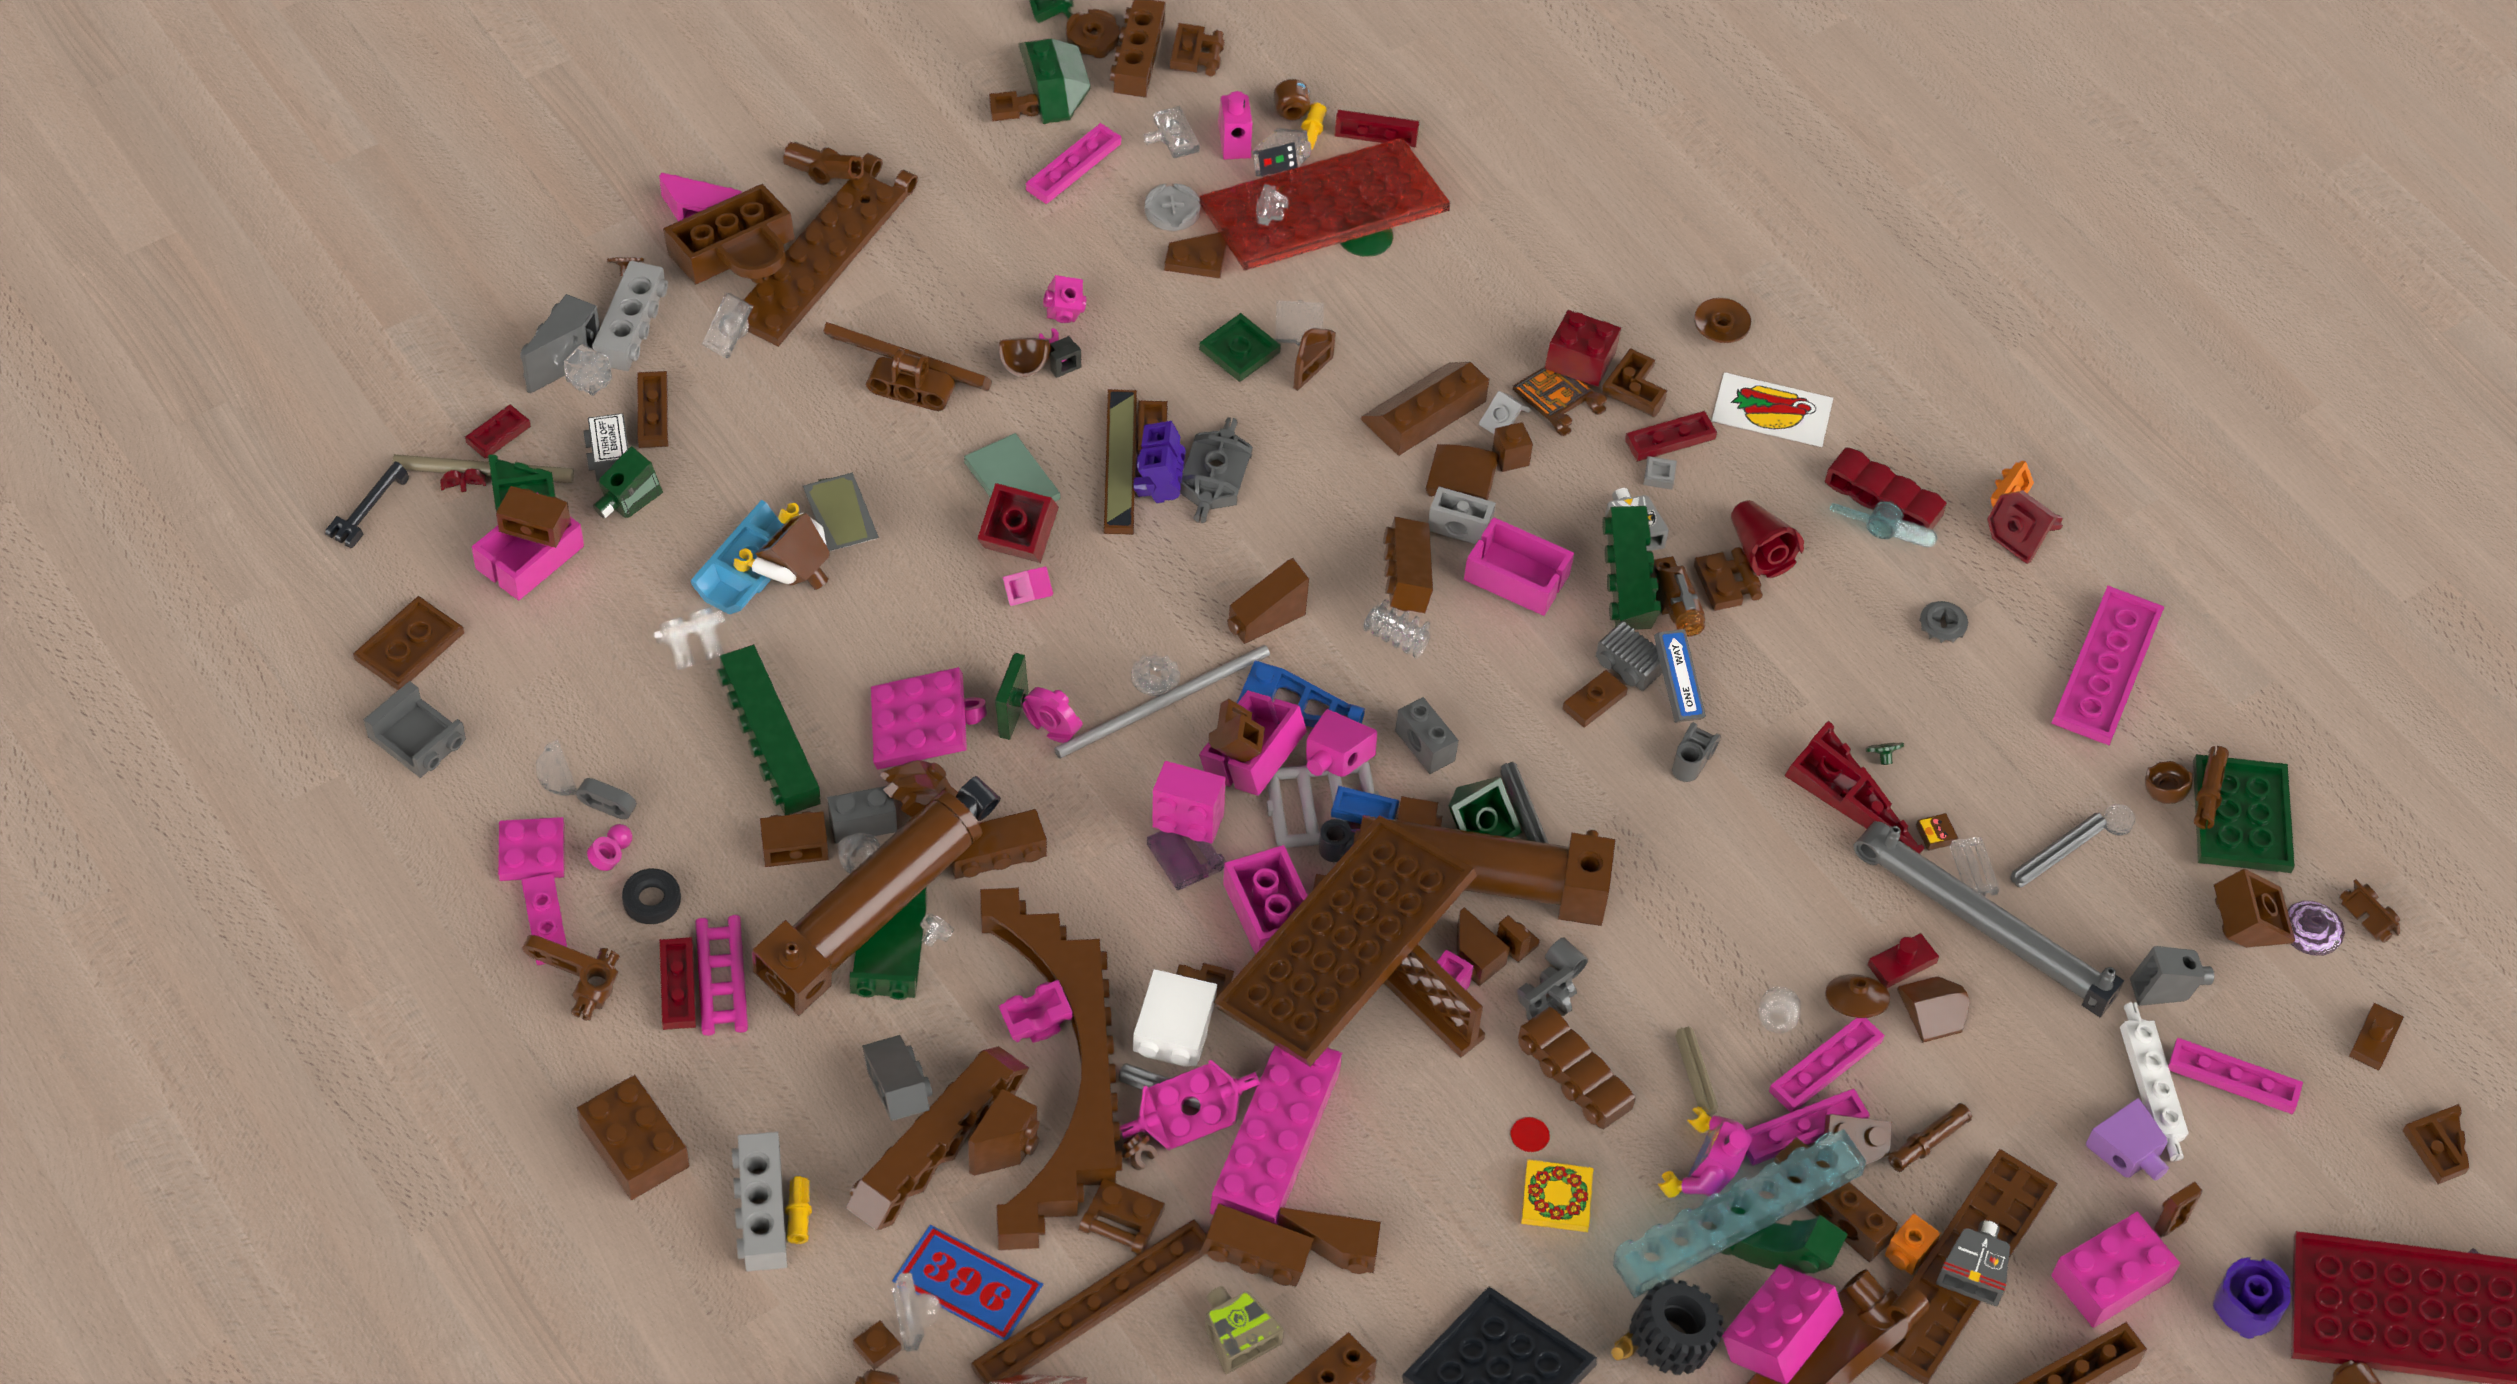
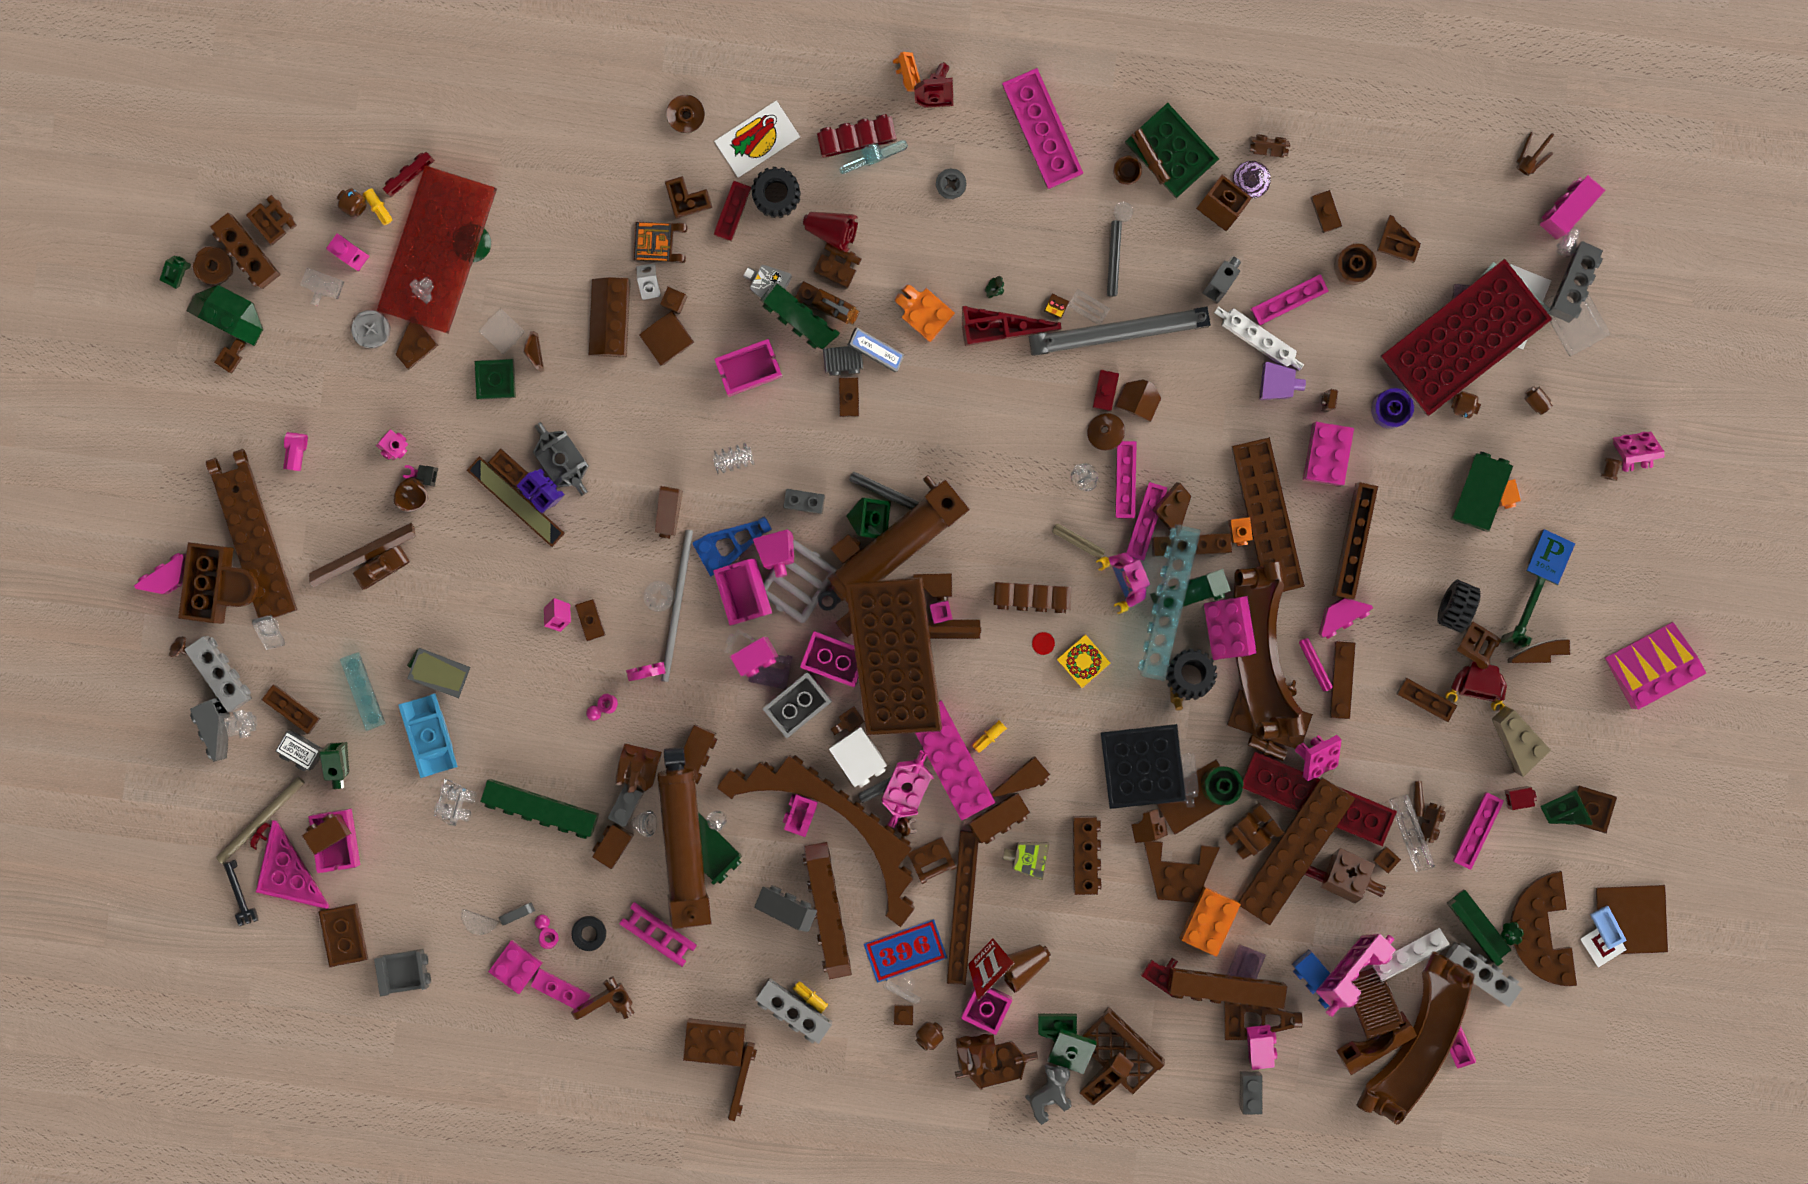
camera: 45 degrees left, 35 degrees up
(438, 534) = (285, 874): none -> dark pink tile
(497, 431) = (242, 796): dark red plate -> none
(518, 475) = (288, 813): dark green wing -> none
(605, 1210) = (736, 1108): none -> reddish brown plate
(677, 983) = (647, 959): dark red plate -> none
(742, 462) = (362, 691): none -> clear light blue plate
(792, 552) = (446, 717): reddish brown torso -> none
(823, 164) = (193, 492): reddish brown piece -> none
(918, 718) = (593, 733): dark pink plate -> none
(969, 219) = (295, 446): none -> dark pink piece
(1004, 1135) = (853, 883): reddish brown slope -> none
(1011, 465) = (481, 564): sand green tile -> none
(1011, 696) = (620, 682): dark green plate -> none
(1018, 523) = (519, 593): dark red brick -> none
(1055, 626) = (590, 620): none -> reddish brown plate
(1073, 163) = (299, 357): dark pink plate -> none
(1173, 904) = (797, 704): none -> light grey brick
(1236, 733) = (737, 605): reddish brown brick -> none
(1281, 151) = (385, 244): slope -> none
(1349, 1158) = (989, 736): none -> yellow axle
(1353, 804) = (819, 568): blue tile -> none
(1408, 565) = (705, 425): reddish brown brick -> none
(1460, 515) = (695, 368): light grey brick -> none
(1517, 938) = (946, 559): reddish brown bracket -> none
(1556, 984) = (986, 580): dark grey hips -> none
(1564, 954) = (975, 547): dark grey beam -> none
(1583, 348) = (644, 206): dark red brick -> none
(1660, 472) = (748, 236): light grey tile -> none
(1694, 753) = (918, 376): dark grey piece -> none
(1742, 440) = (772, 176): none -> black tyre
(1775, 698) = (923, 311): none -> orange plate
(1920, 1144) = (1198, 492): reddish brown pin -> none
(1977, 1265) = (1277, 516): dark grey torso -> none
(2359, 1109) = (1361, 255): none -> reddish brown brick

